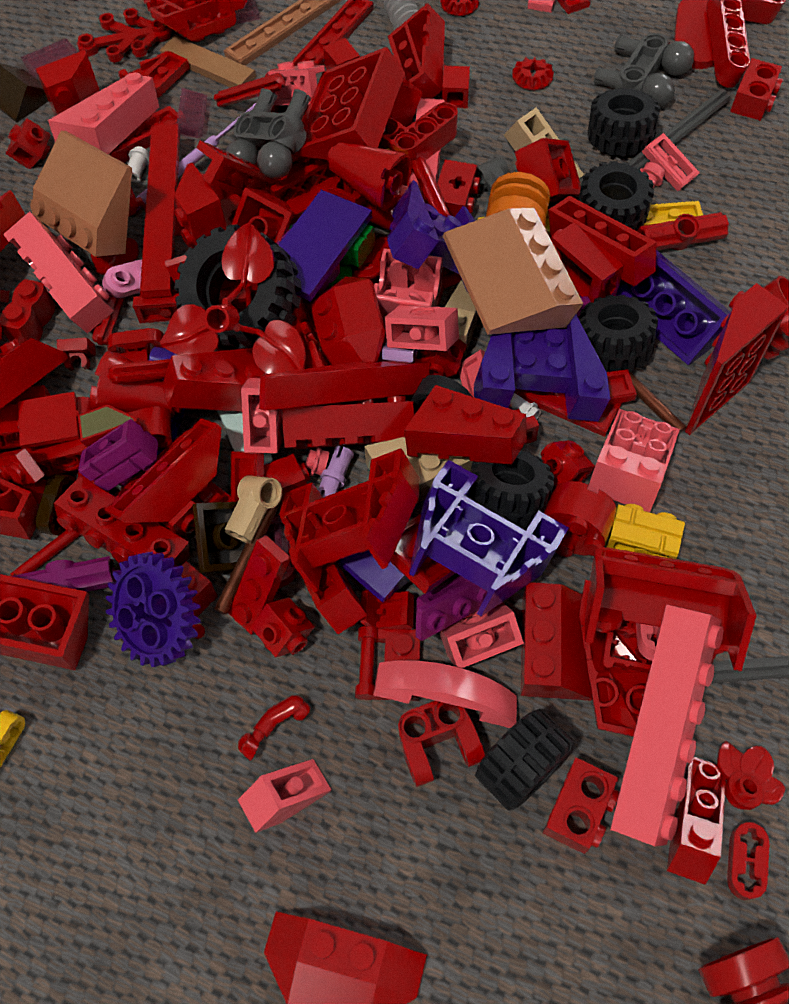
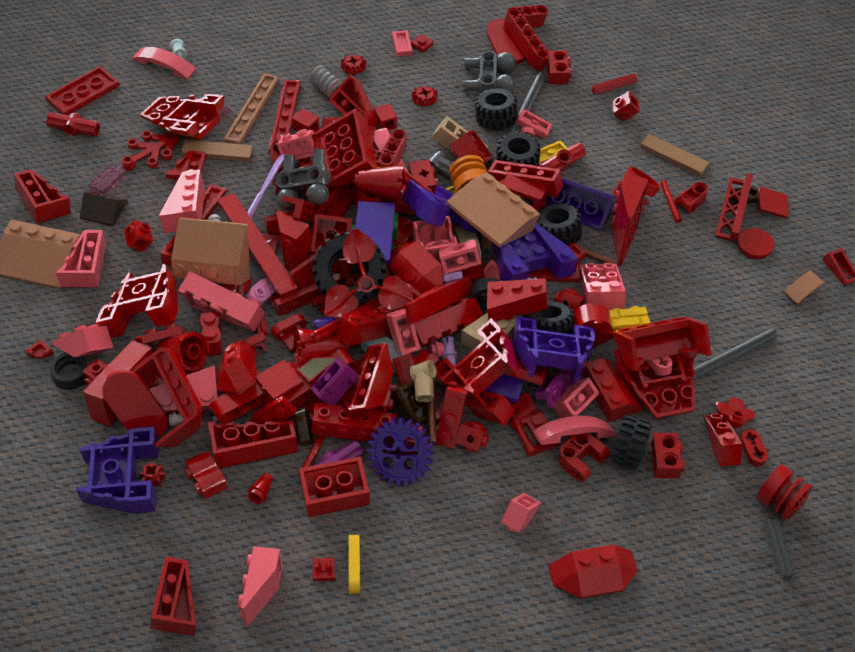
camera: 30 degrees left, 10 degrees down
(68, 81) = (144, 194): red slope -> none
(191, 113) = (229, 183): clear pink tile -> none
(249, 90) = (266, 158): red axle -> none
(274, 715) = (498, 472): red arm -> none
(667, 726) = (688, 397): coral brick -> none

